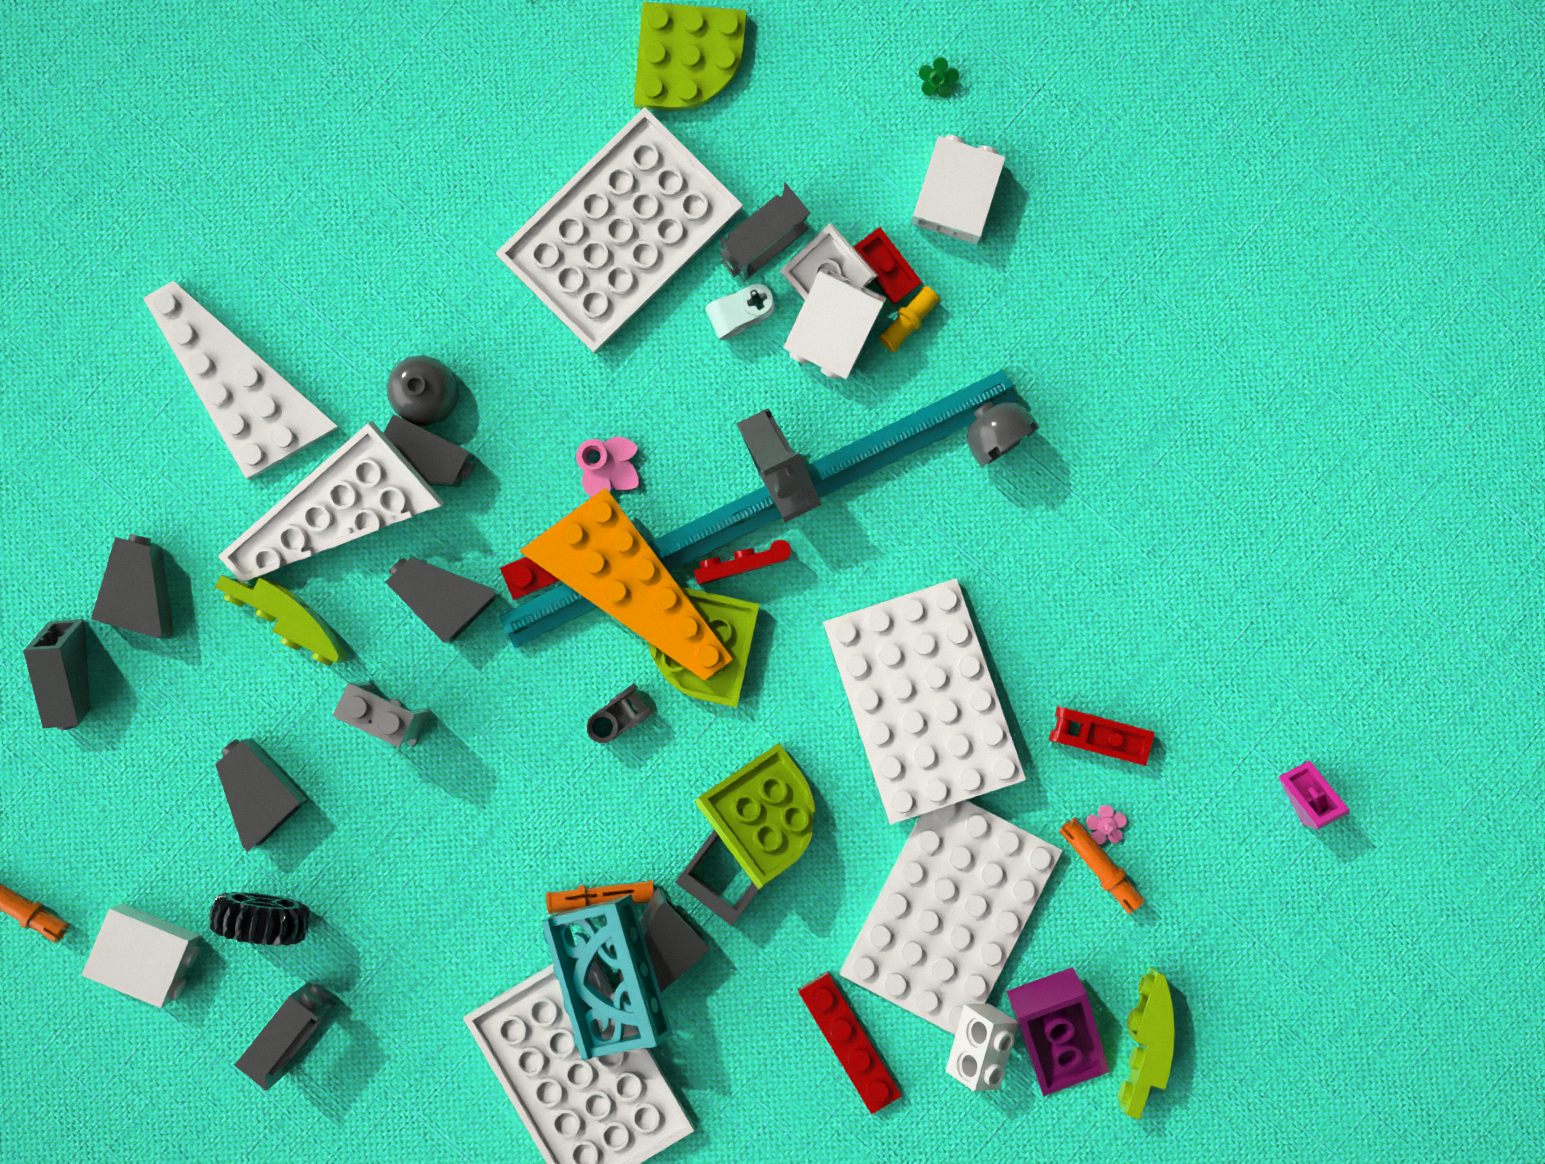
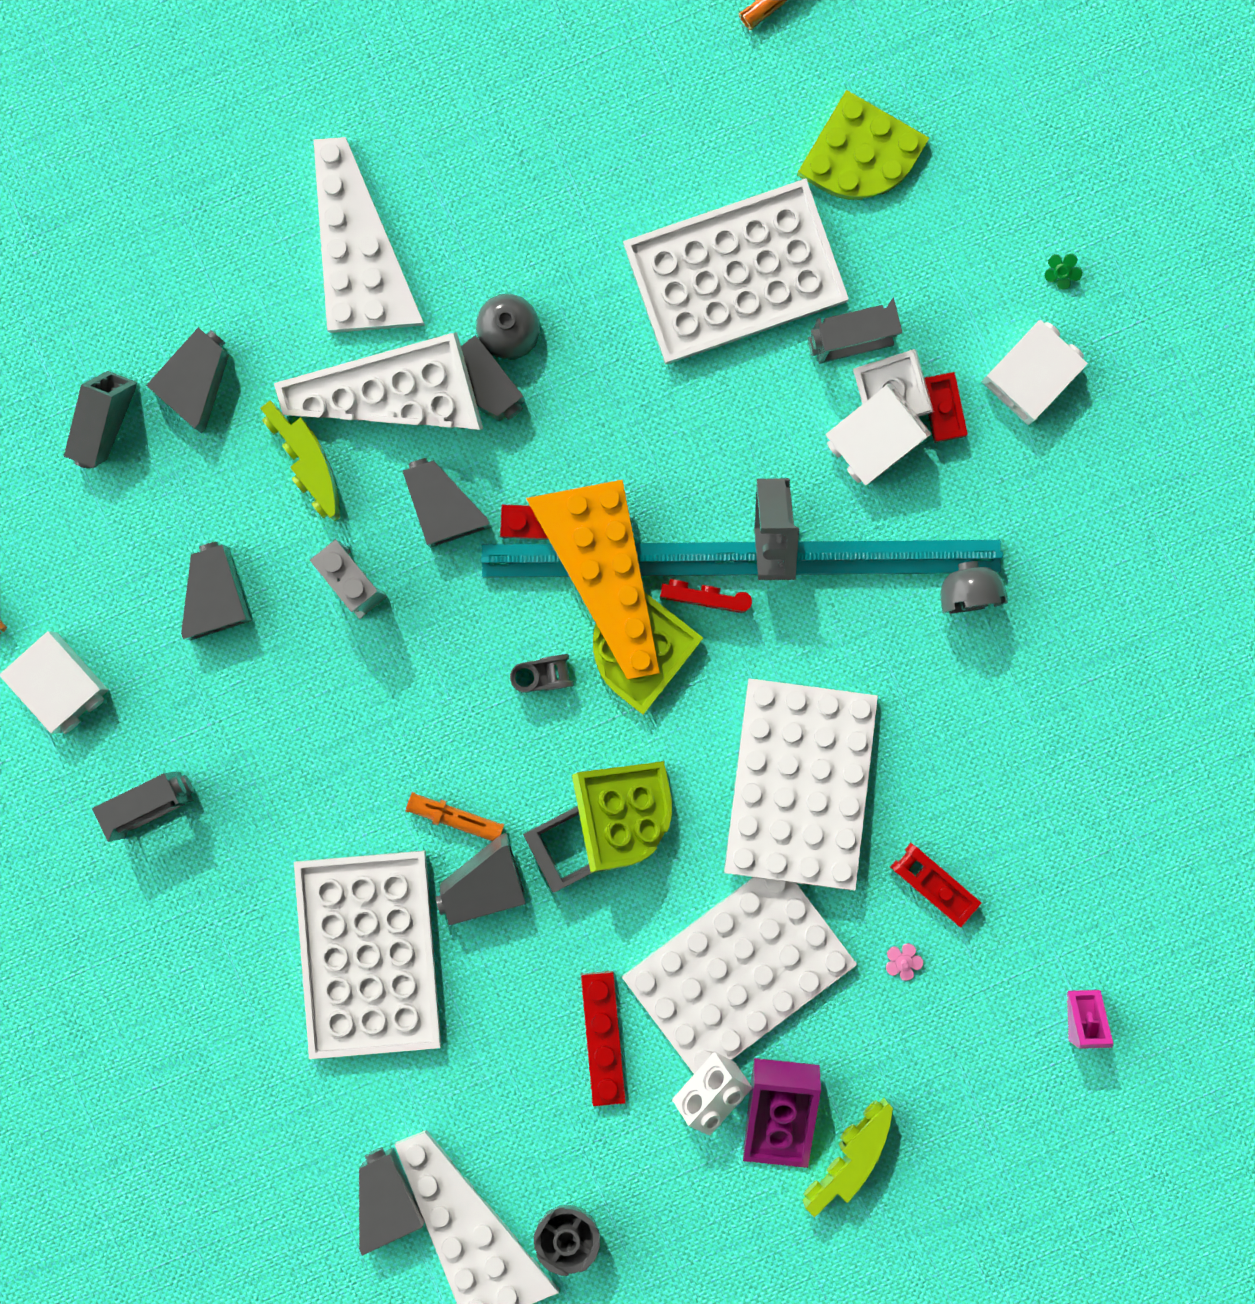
camera: 30 degrees right, 0 degrees up
(259, 918) = (166, 698): black gear -> none
(583, 1001) = (401, 897): teal fence -> none
(612, 469) = (634, 467): bright pink plate -> none
(733, 312) = (799, 387): light aqua piece -> none
(909, 319) = (942, 460): yellow pin -> none
(1107, 872) = (884, 994): orange pin -> none

